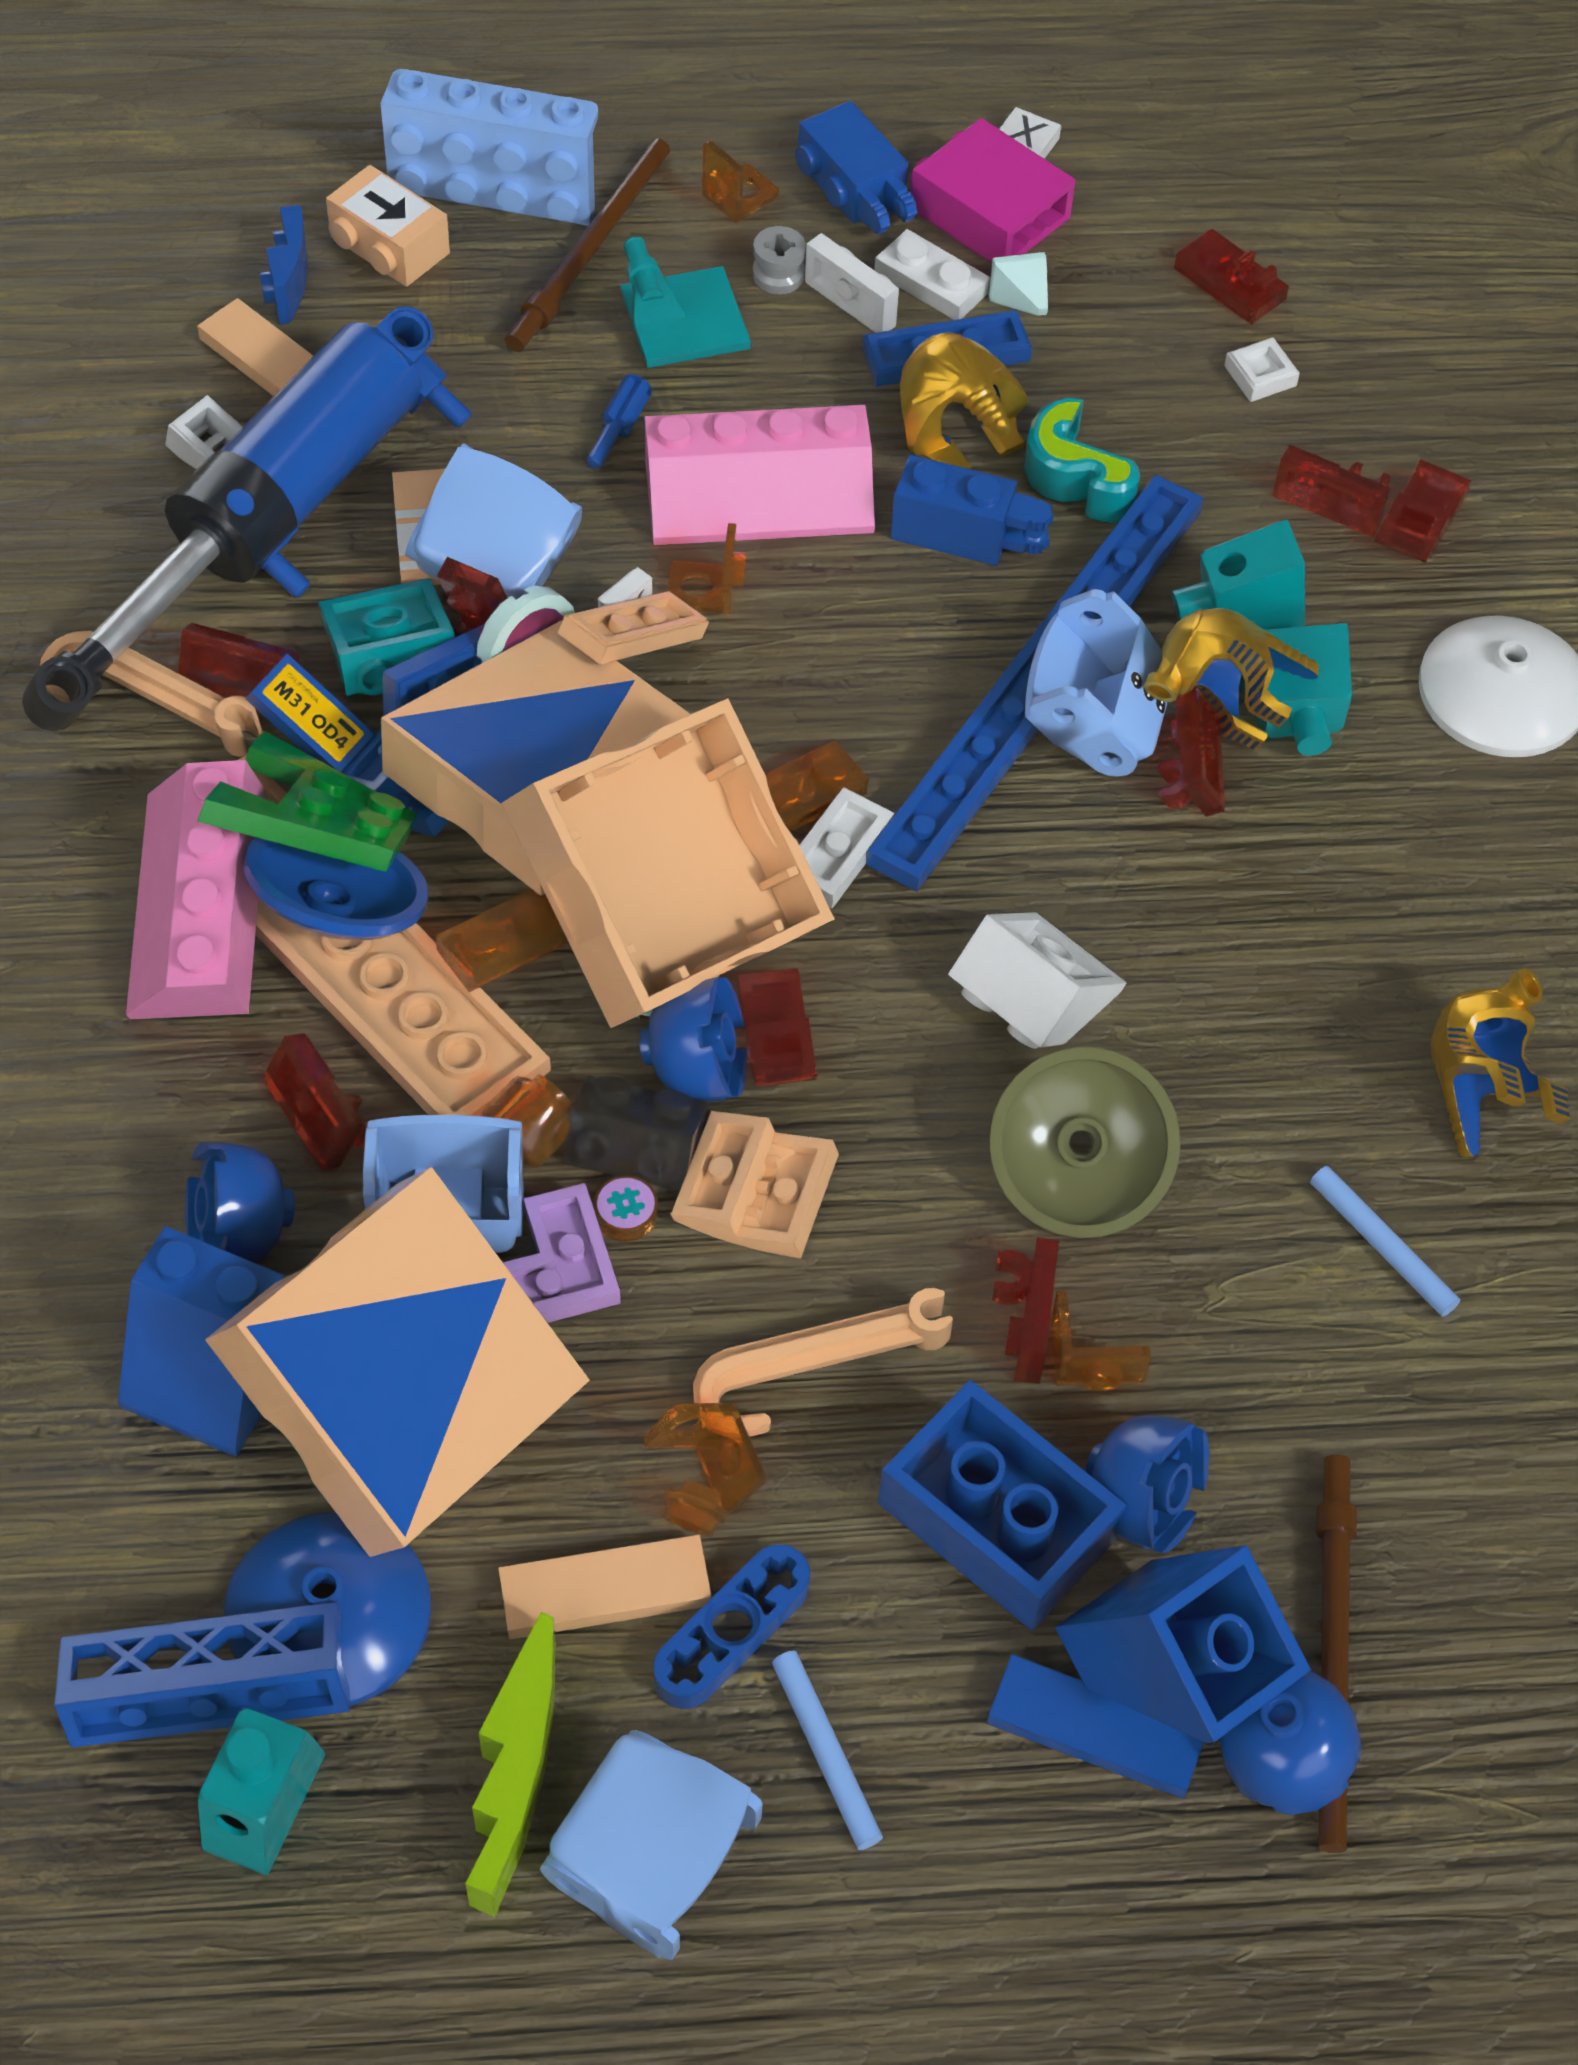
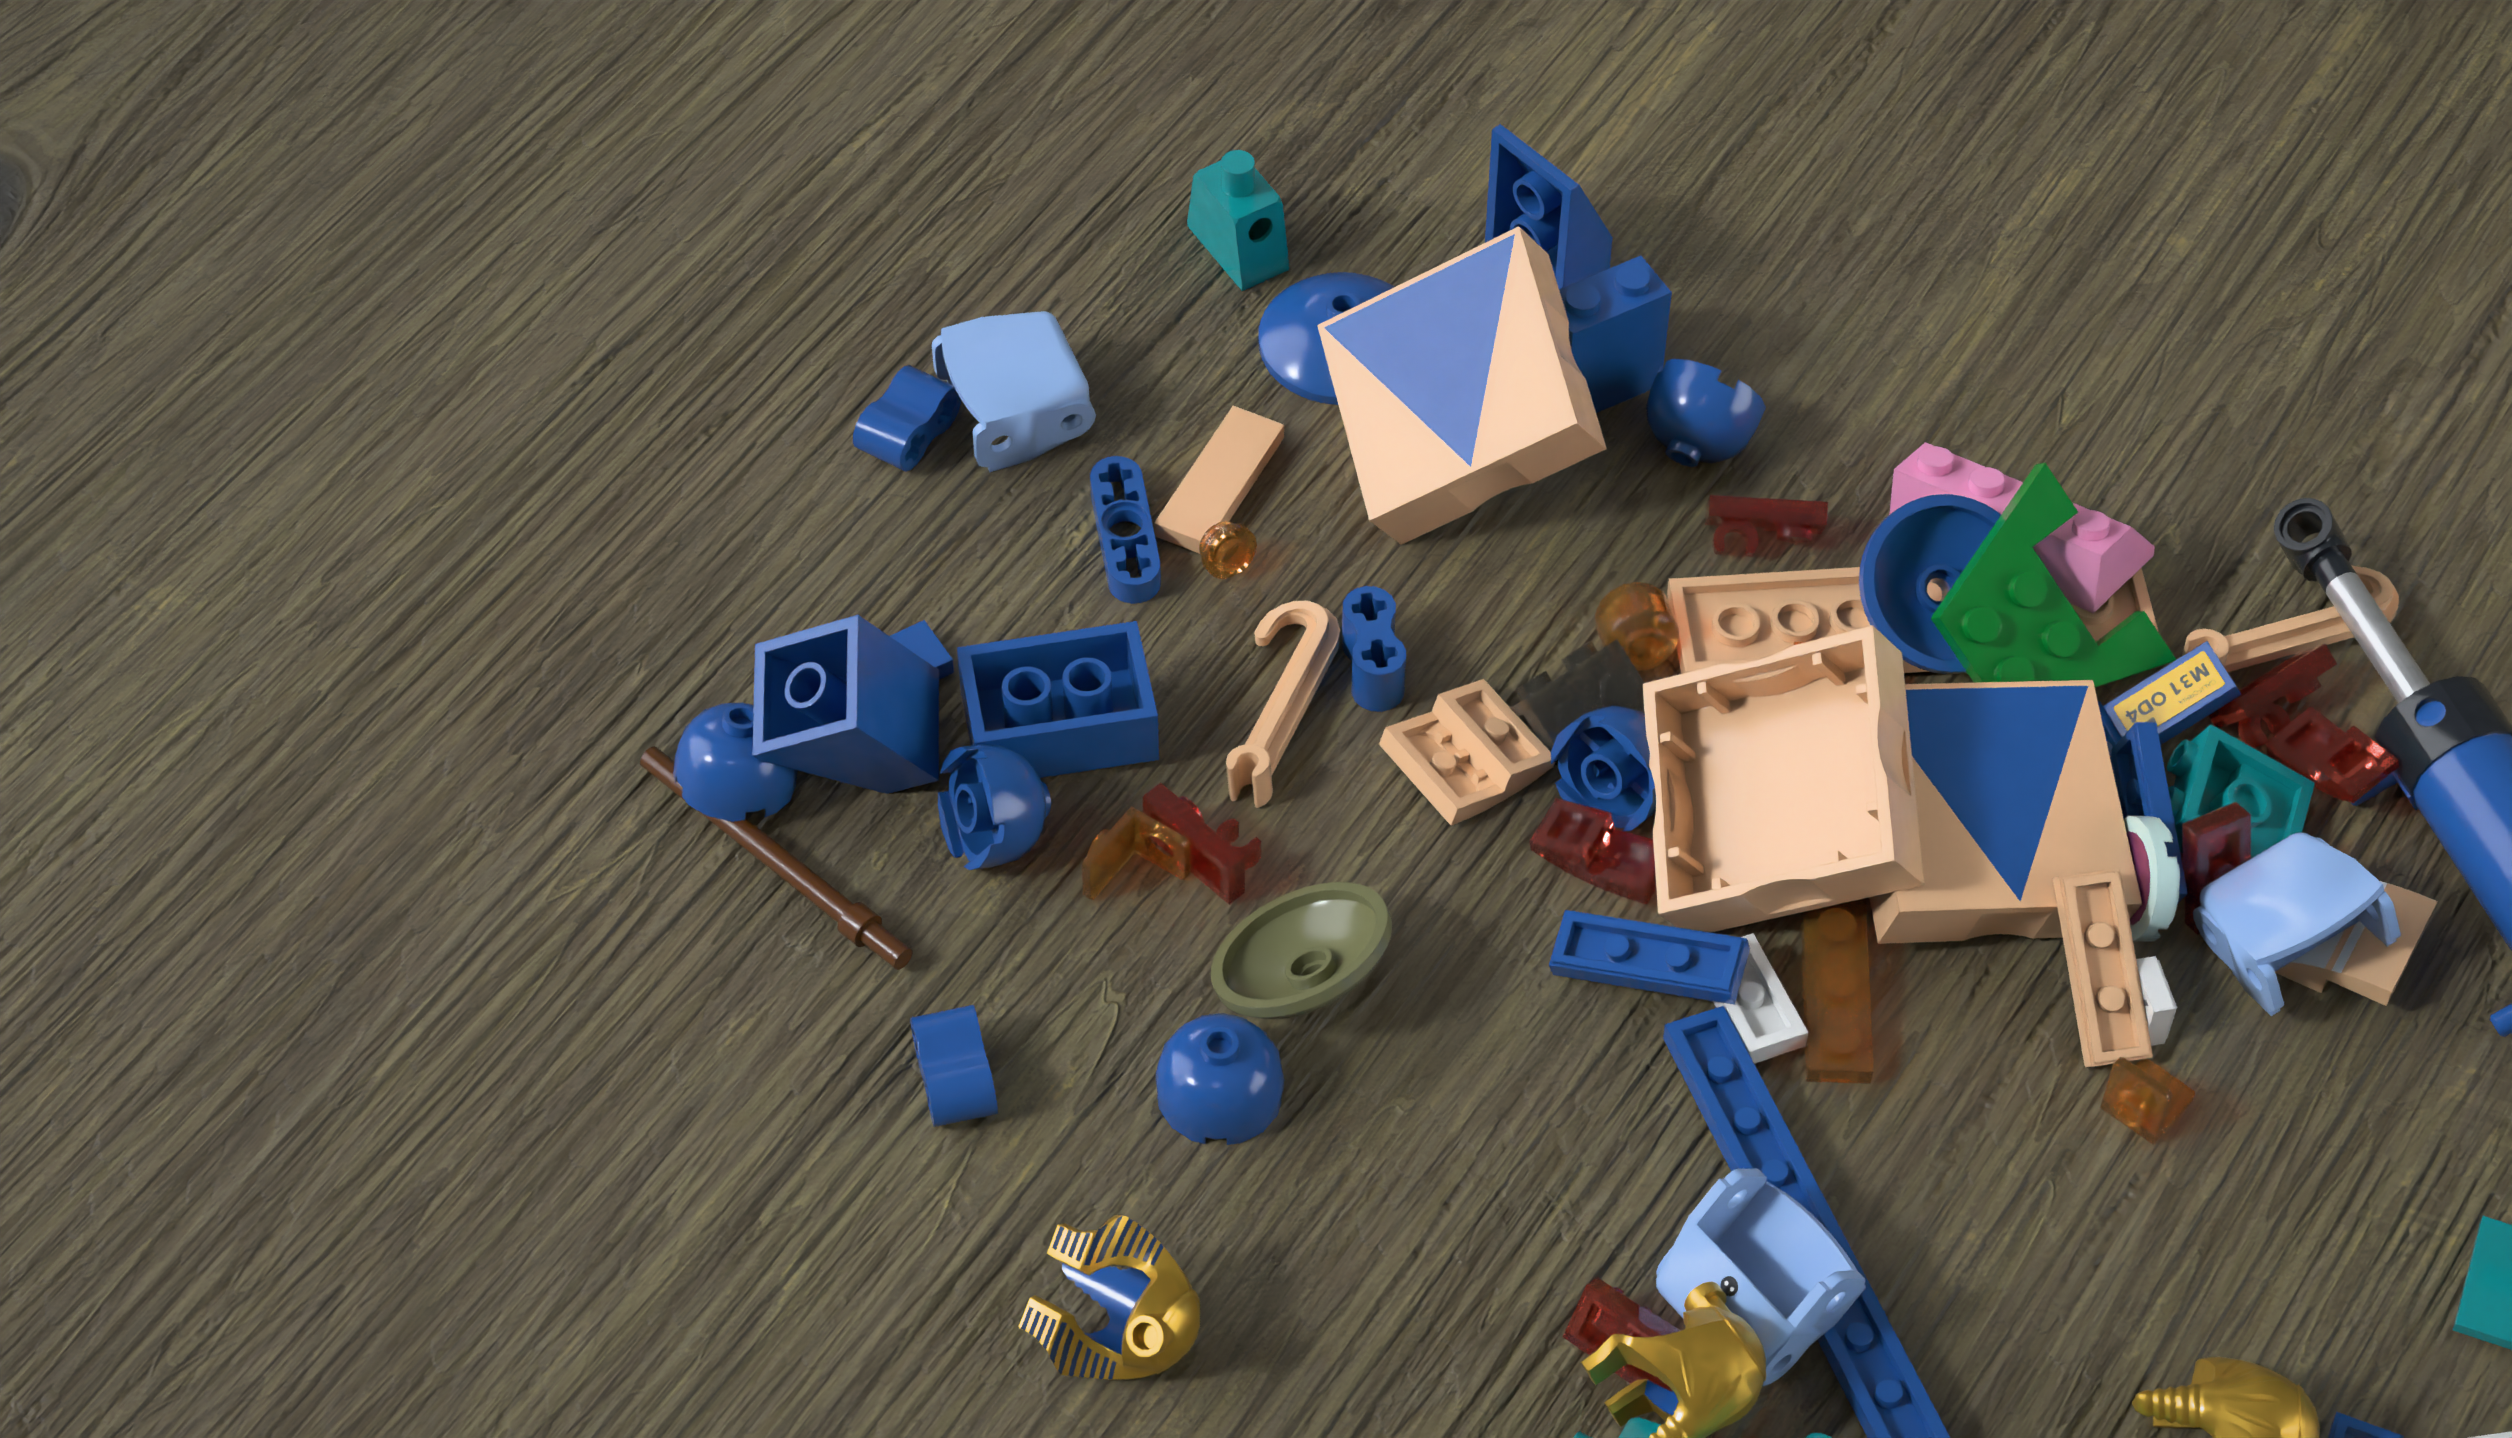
camera: 130 degrees right, 5 degrees down
(76, 1469) = (1546, 205): none -> blue slope
(200, 1687) = (1339, 216): blue fence -> none
(290, 590) = (2336, 760): none -> clear red slope
(471, 1155) = (1608, 524): light blue piece -> none
(518, 1744) = (1142, 364): lime slope -> none
(571, 1261) = (1490, 592): lavender plate -> none
(620, 416) = (2419, 1154): blue axle -> none
(626, 1208) = (1514, 659): tile -> none
(720, 1445) = (1254, 596): clear orange bracket -> none
(724, 1303) = (1373, 648): none -> blue axle
(759, 469) = (2248, 1210): bright pink slope -> none
(763, 1925) = (906, 418): none -> blue axle
(827, 1750) = (992, 530): light blue bar -> none
(864, 924) = (1650, 957): none -> blue tile
(966, 512) = (2077, 1344): blue hinge -> none
(1033, 978) = (1497, 1052): white slope -> none
(1233, 1150) = (1219, 1079): none -> blue cylinder
(1385, 1241) = (1048, 1136): light blue bar -> none
(1399, 1339) = (953, 1065): none -> blue axle

